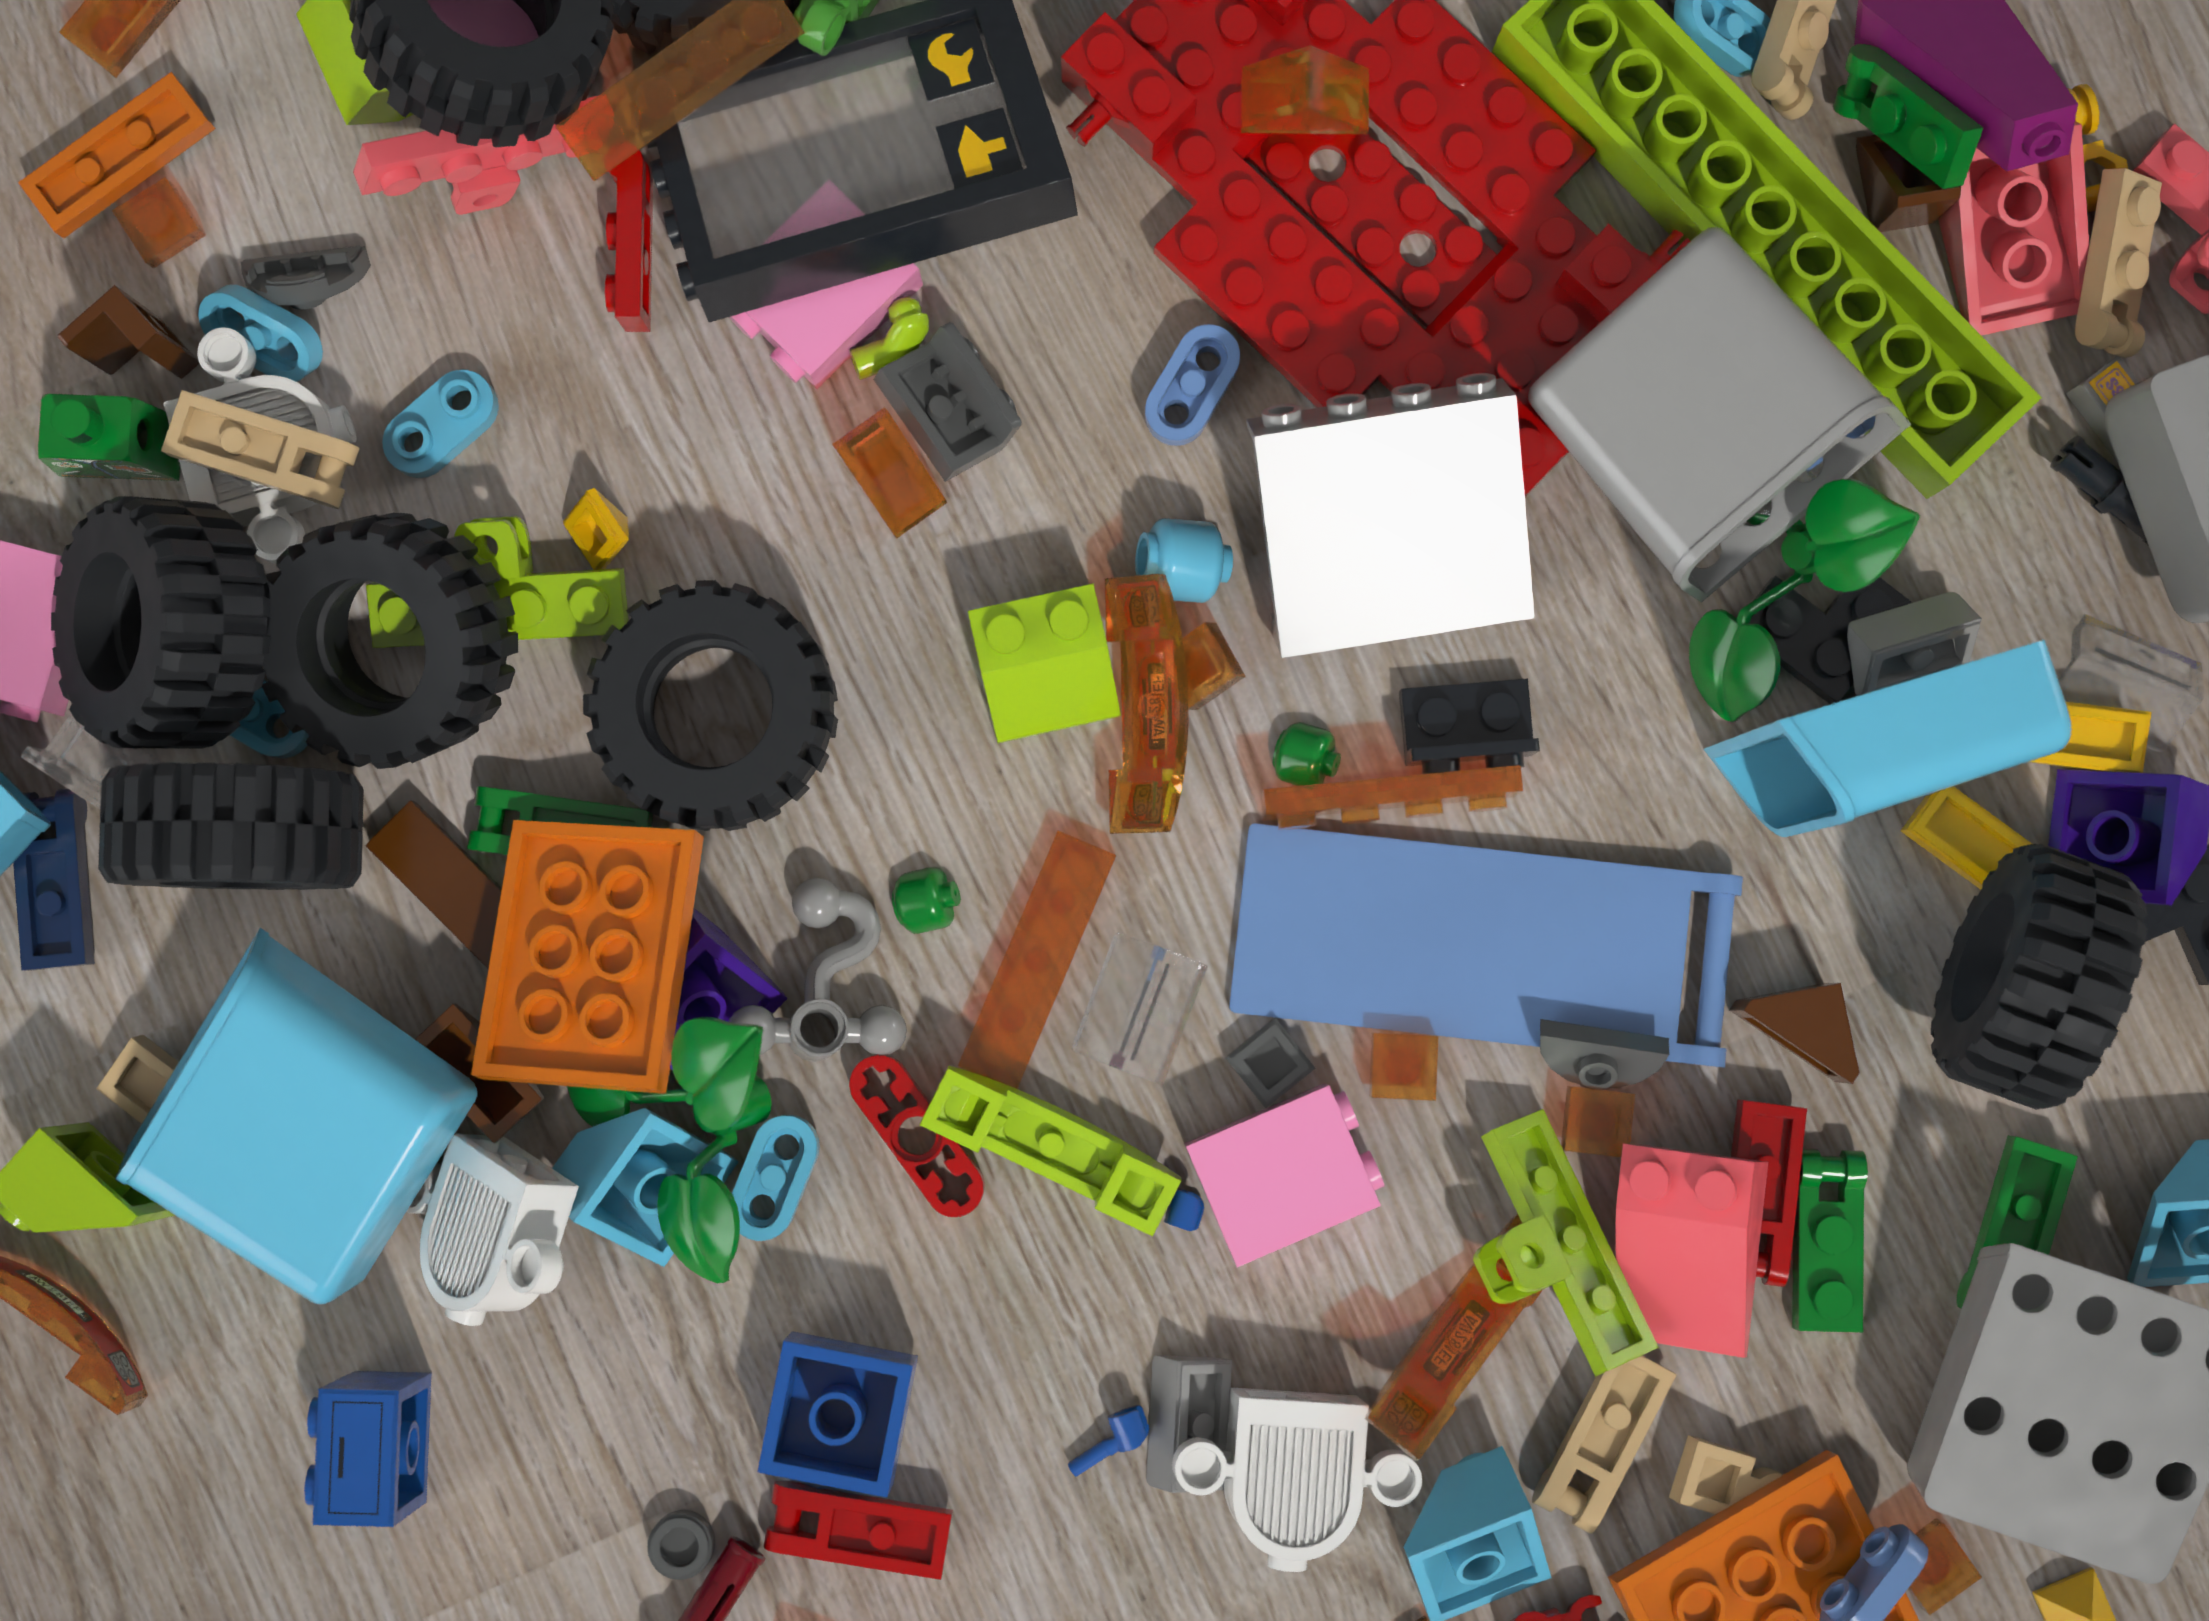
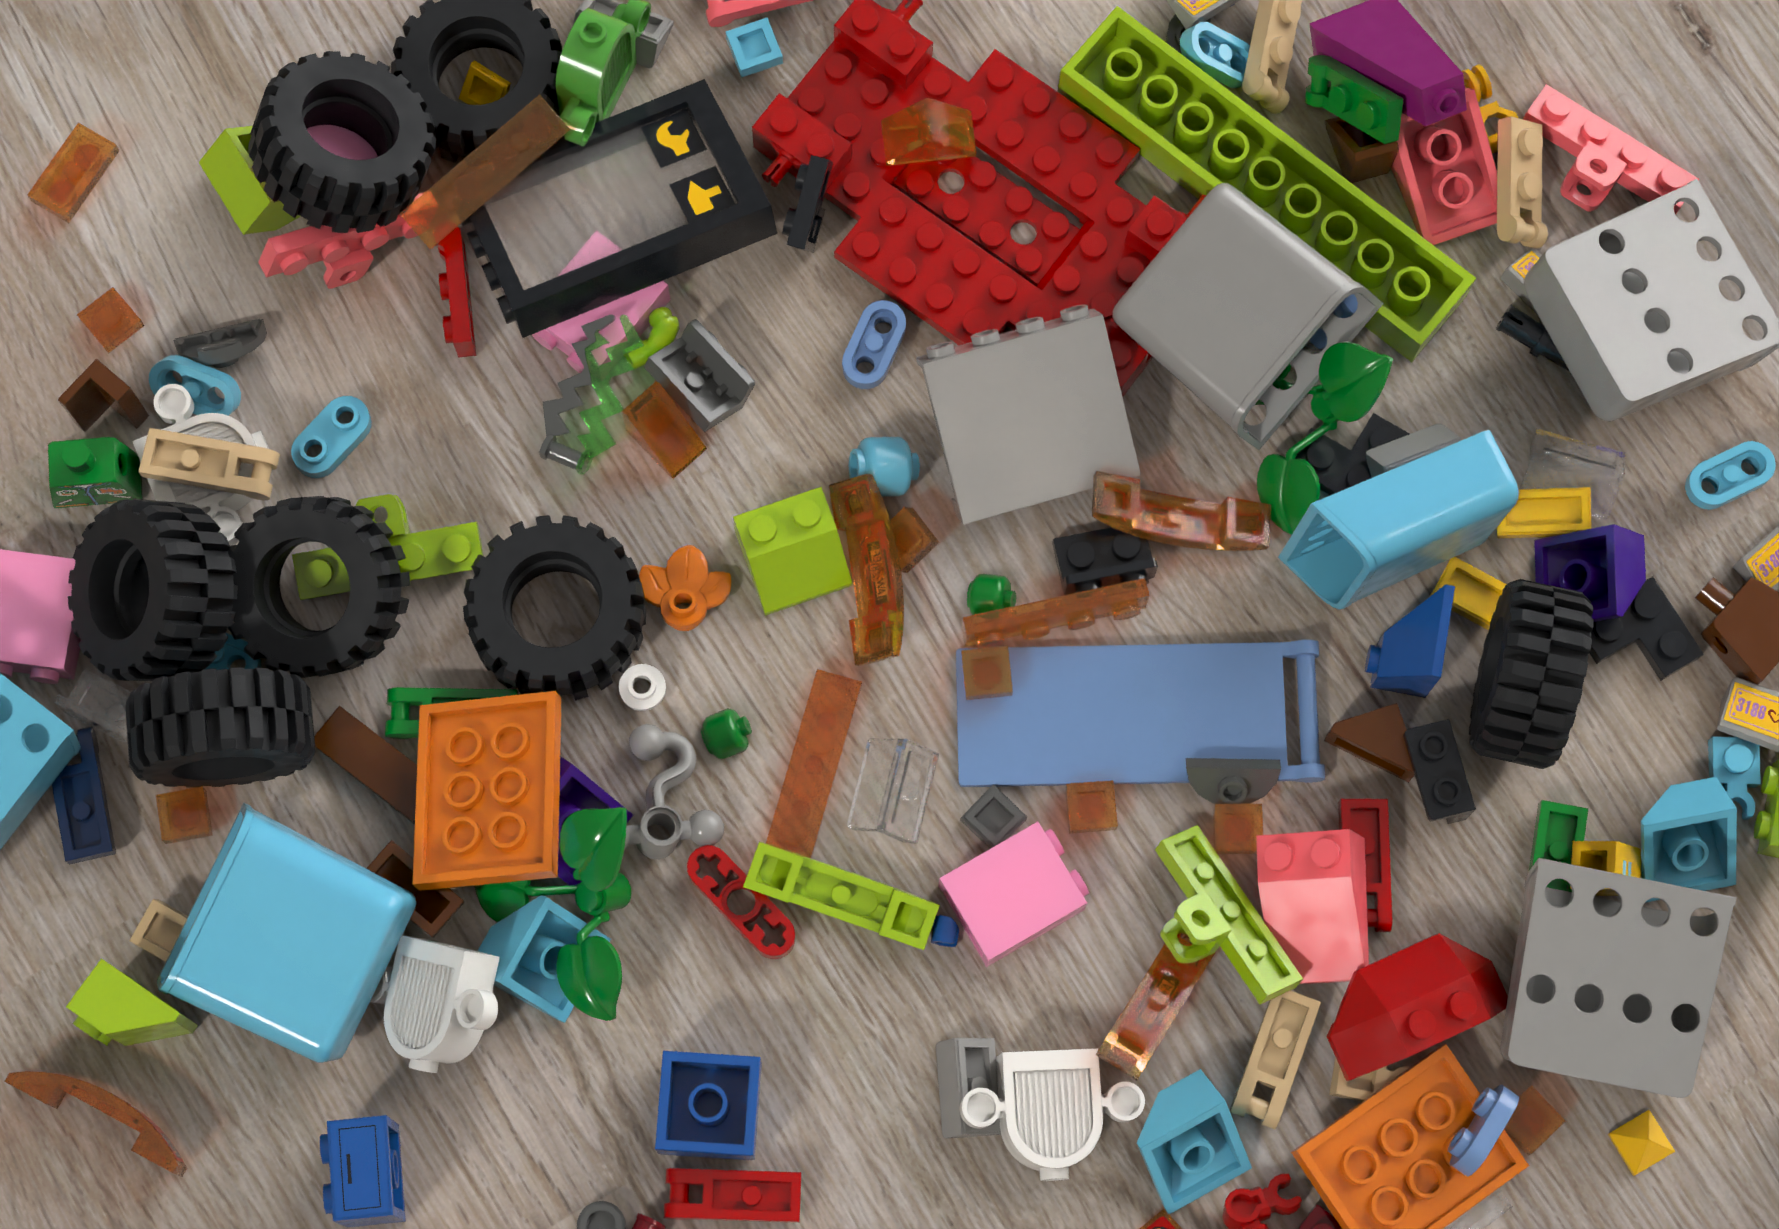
camera: 10 degrees left, 10 degrees down
(116, 155) = (76, 276): orange plate -> none
(187, 925) = (184, 815): none -> clear orange plate
(597, 528) = (454, 496): yellow slope -> none
(775, 1176) = (641, 945): medium azure plate -> none
(808, 390) = (599, 377): none -> piece
(836, 837) = (644, 701): none -> white plate
(896, 685) = (684, 581): none -> orange plate
(1117, 202) = (804, 222): none -> black plate
(1129, 1432) = (924, 1097): blue hand -> none
(1286, 867) = (986, 673): none -> clear orange plate
(1580, 684) = (1180, 520): none -> clear orange slope
(1803, 1402) = (1413, 1004): none -> red wedge
(1829, 1244) = (1418, 888): green plate -> none
(1877, 907) = (1413, 649): none -> blue slope
(1885, 1084) = (1439, 772): none -> black bracket
(2093, 1240) = (1609, 857): none -> yellow brick

